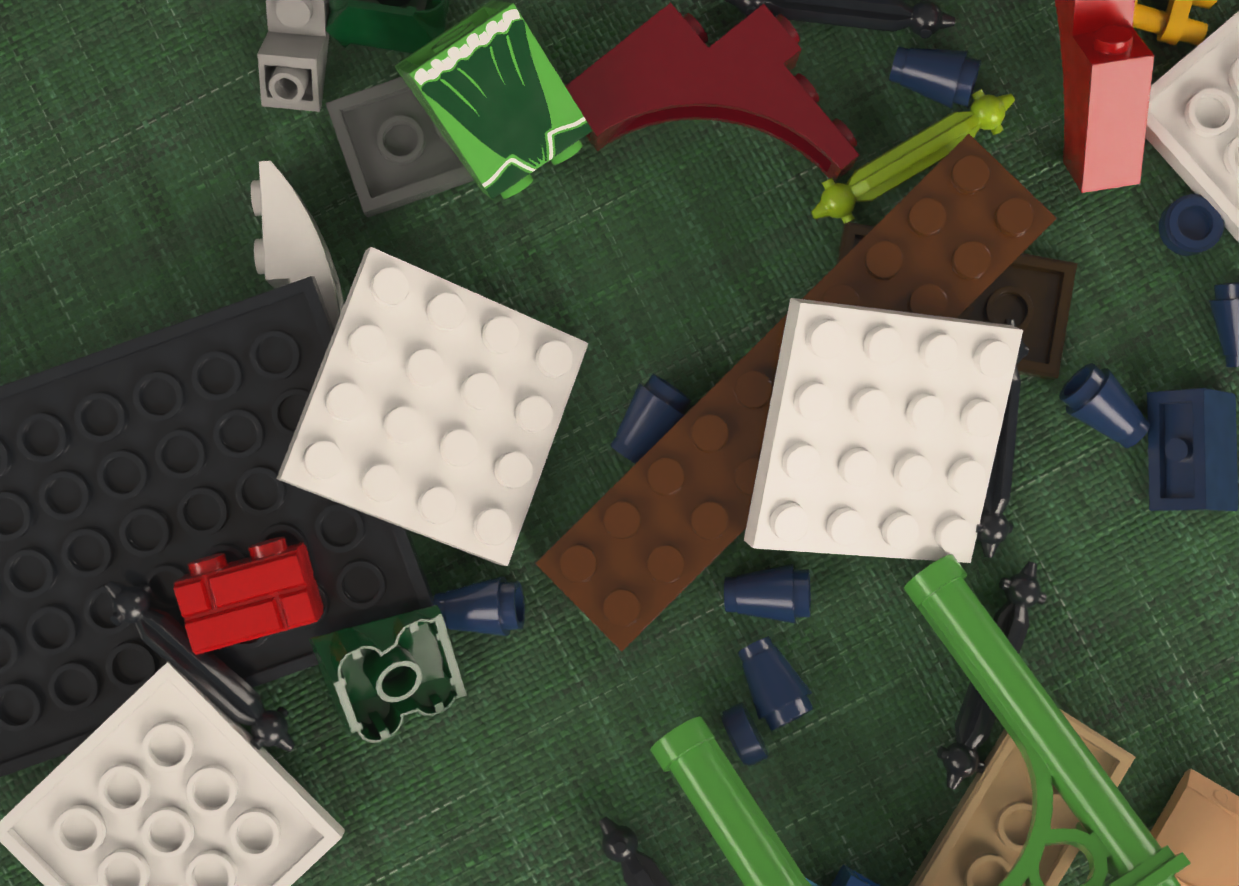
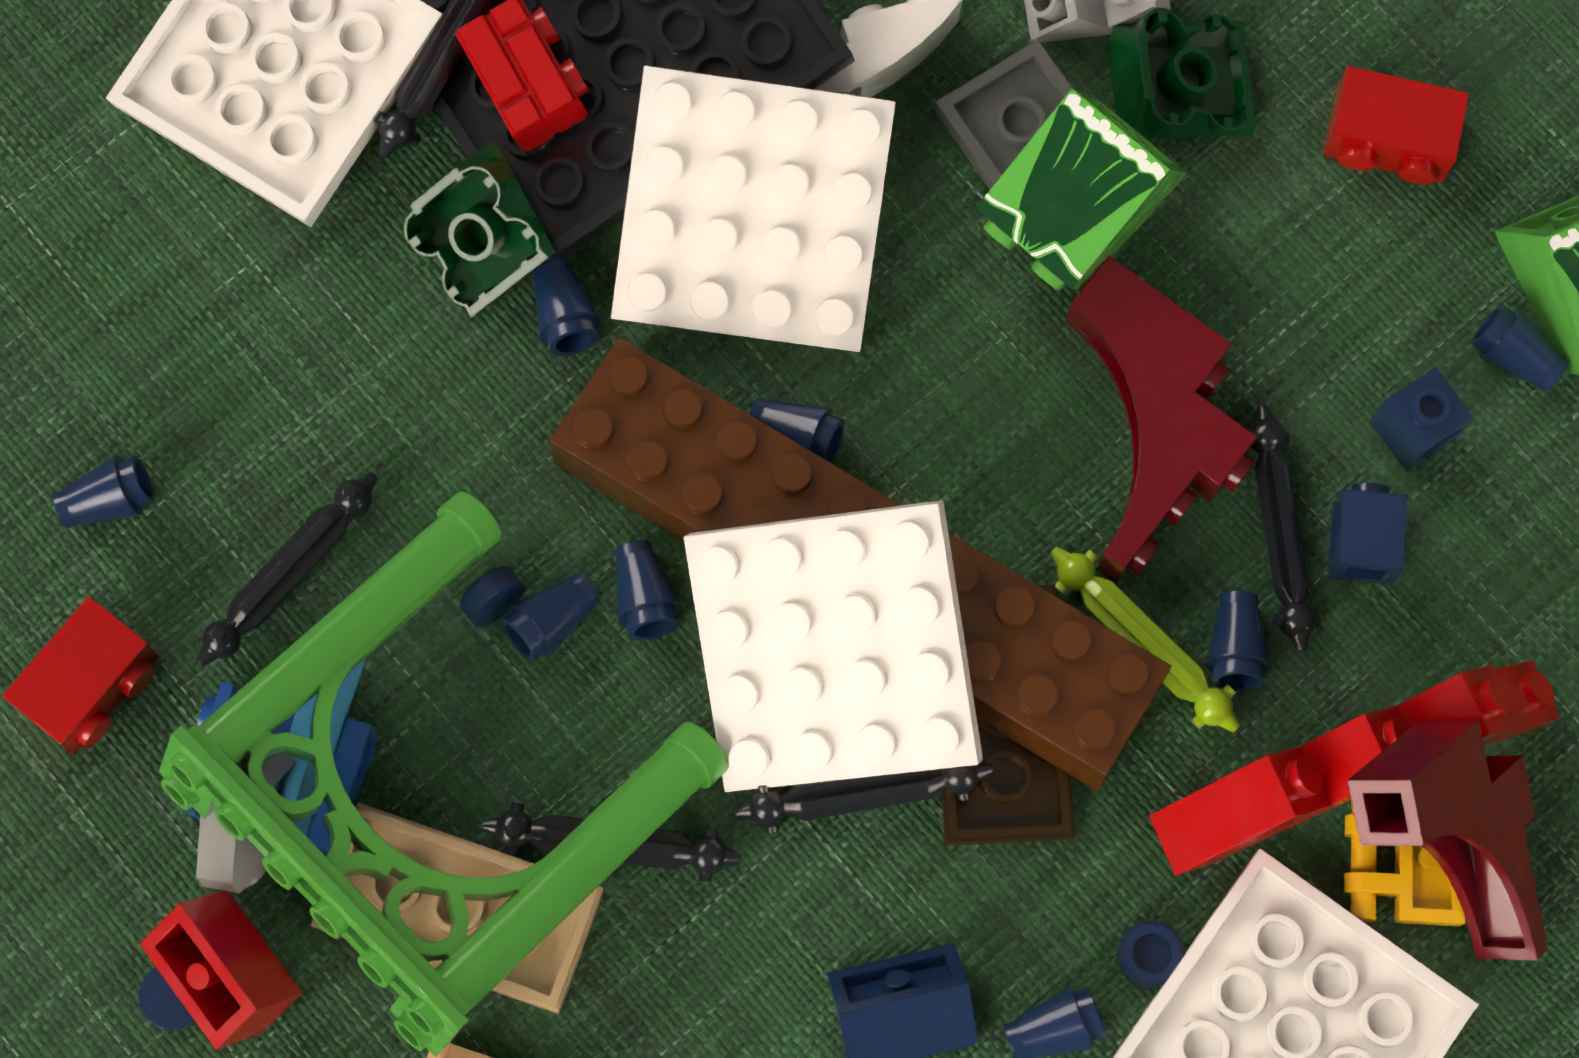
camera: 75 degrees right, 10 degrees down
(1104, 405) = (926, 897): dark blue cone -> none

